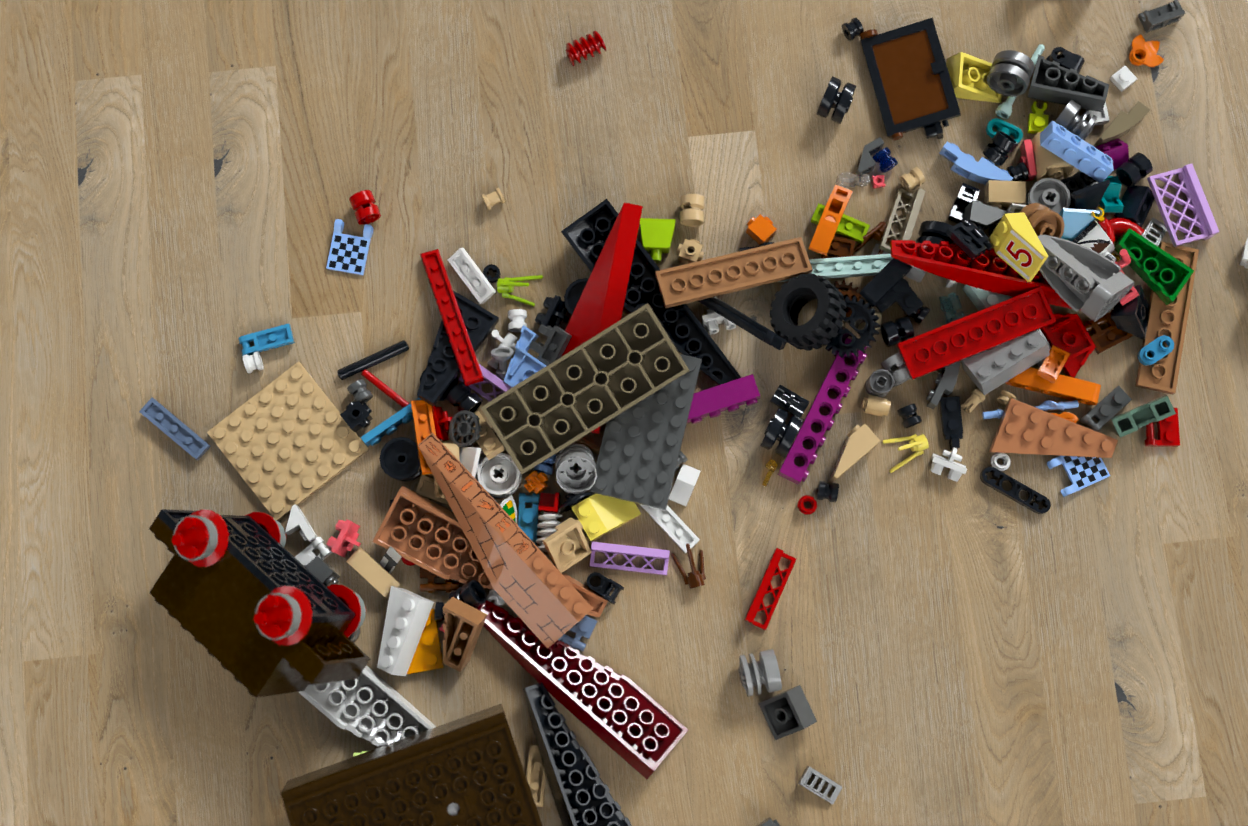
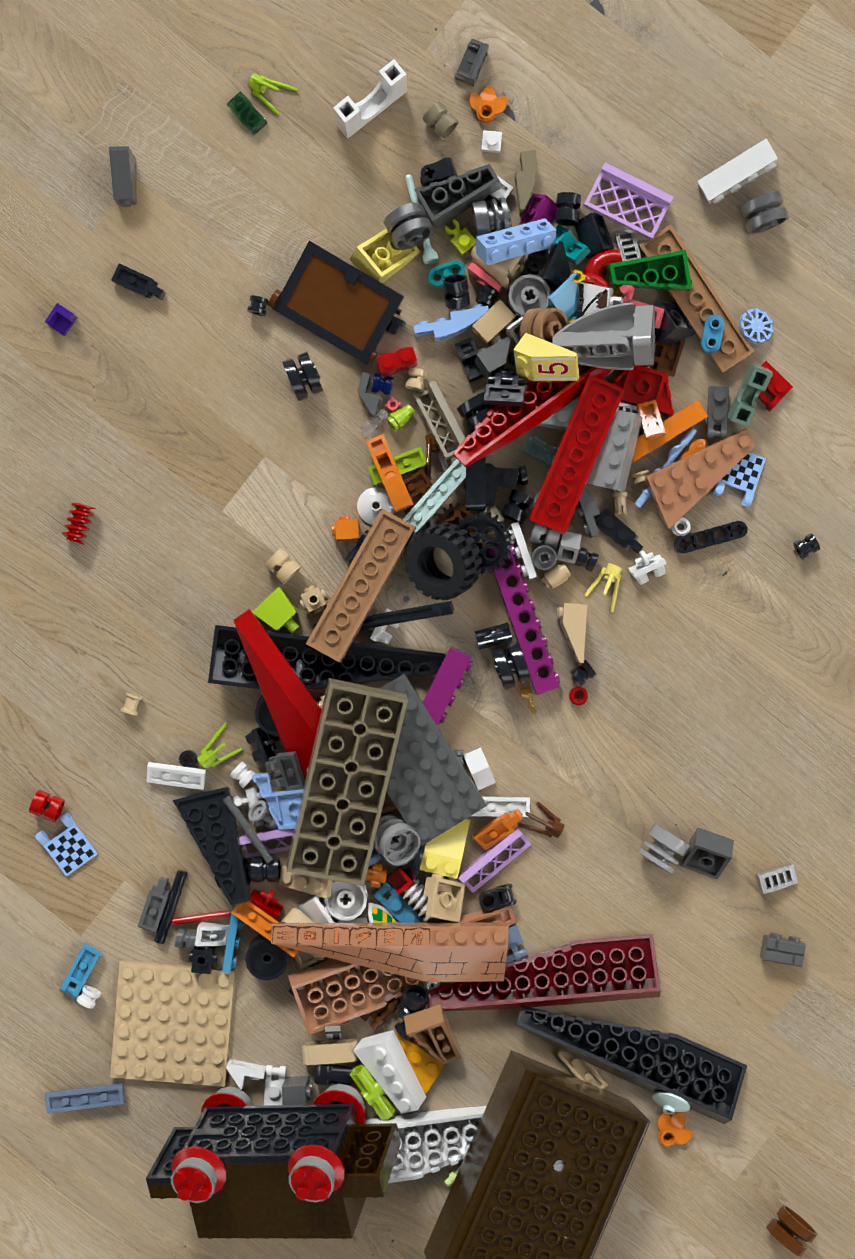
camera: 45 degrees left, 10 degrees up
(346, 538) = (286, 1048): coral hips -> none
(358, 585) = (329, 1073): none -> black piece
(363, 347) = (154, 906): none -> dark grey hinge
(373, 629) = (372, 1092): none -> lime piece
(379, 405) = (211, 934): none -> white slope
(451, 317) = (194, 822): red tile -> none
(465, 428) = (289, 892): dark grey wheel -> none
(483, 354) = (247, 829): none -> dark grey bar
(654, 538) = (498, 829): none -> orange hinge
(762, 589) = (606, 785): red fence -> none
(789, 228) = (366, 501): none -> white dish
(868, 365) = (522, 551): none -> white plate
(873, 193) = (400, 417): none -> lime cone
(905, 393) = (569, 547): none -> light grey brick
(910, 154) = (401, 360): none -> red brick
(1078, 564) = (806, 546): none -> black wheel
(1101, 30) = (441, 121): none -> dark tan wheel
(1193, 377) = (756, 326): none -> light blue wheel

